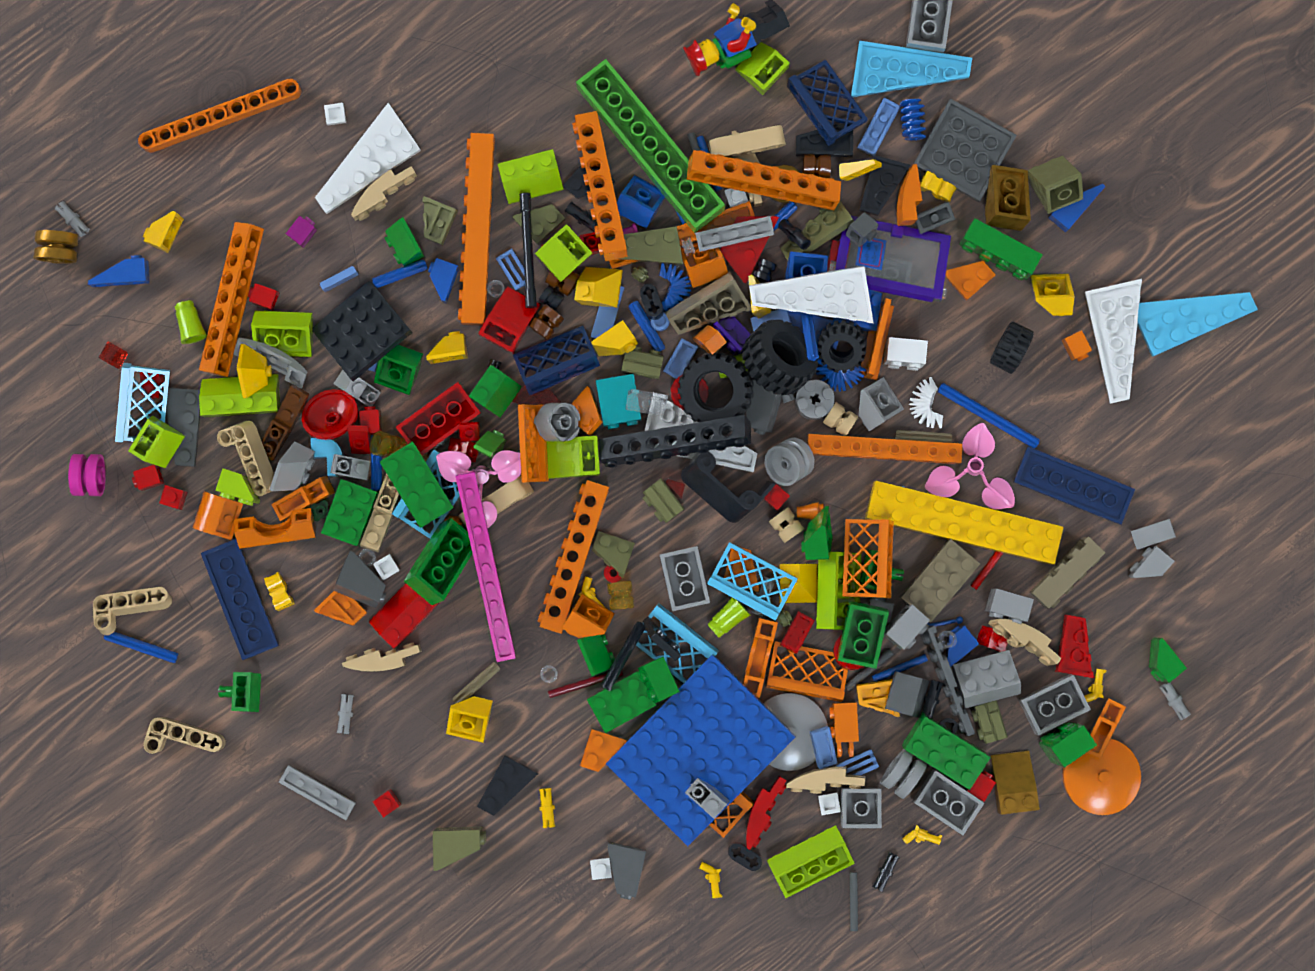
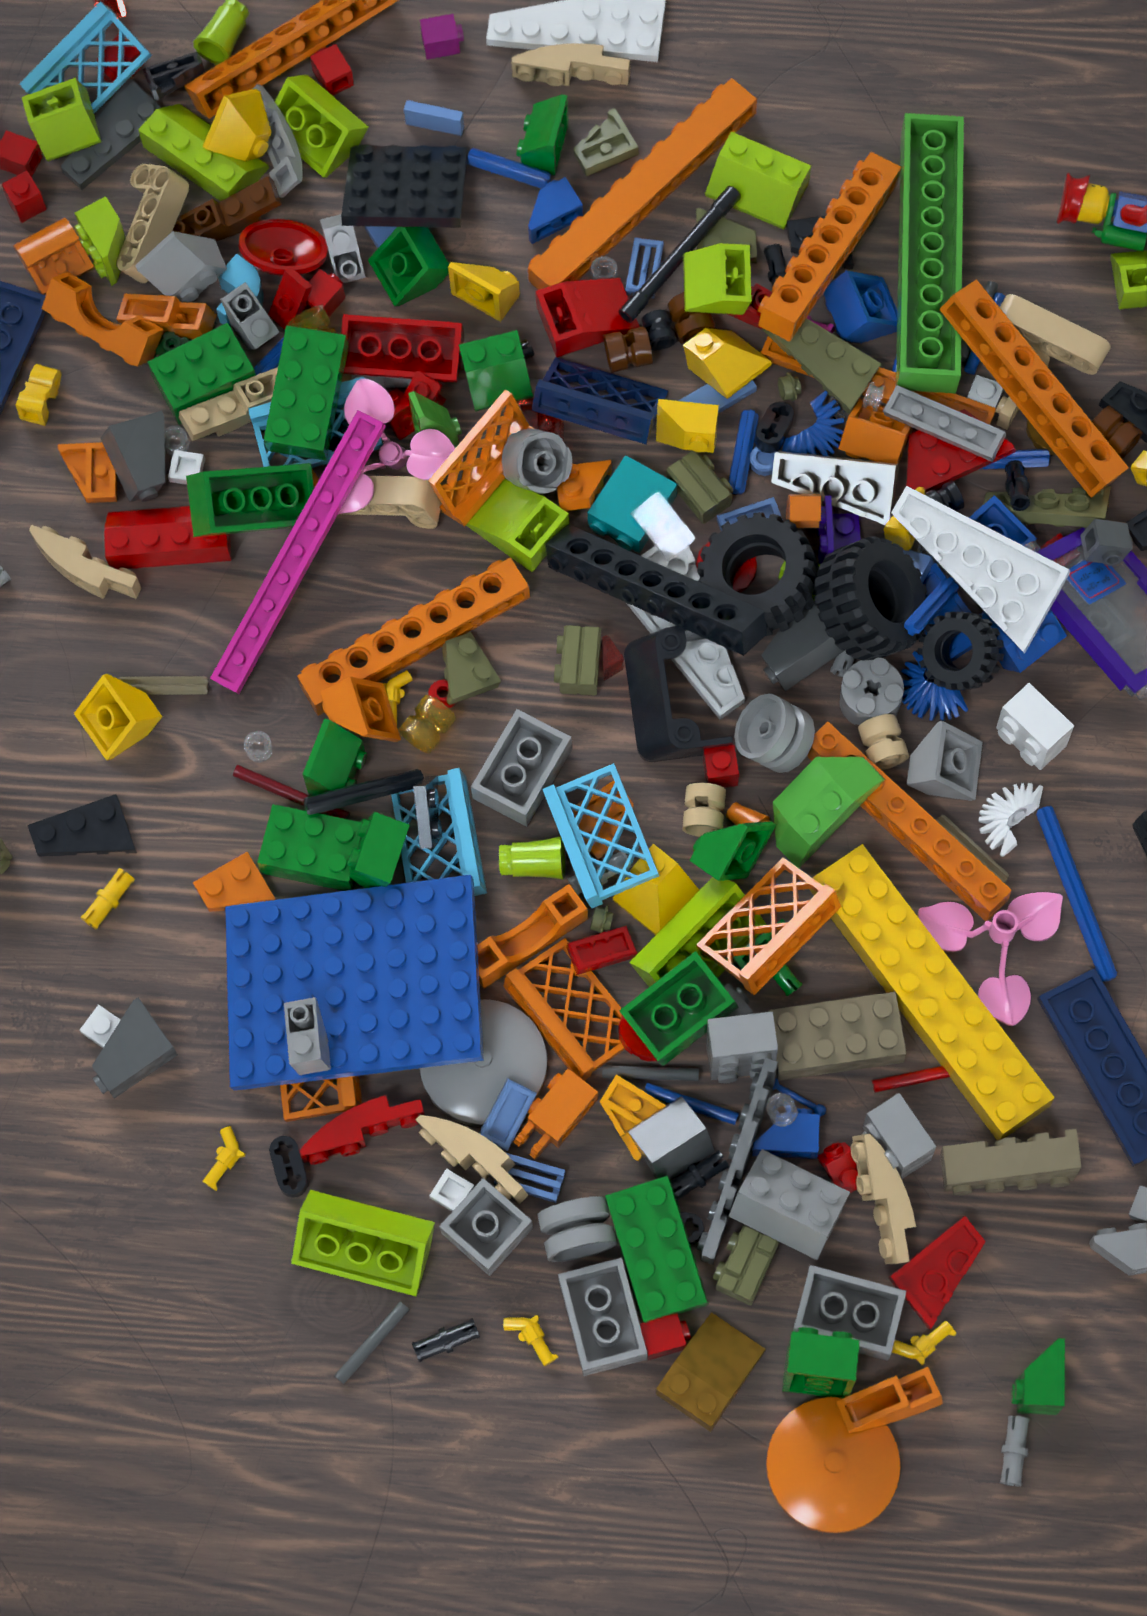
camera: 45 degrees right, 15 degrees down
(186, 368) = (173, 74): none -> black wing
(840, 476) = (820, 803): none -> bright green wedge
(876, 342) = (1038, 669): orange fence -> none

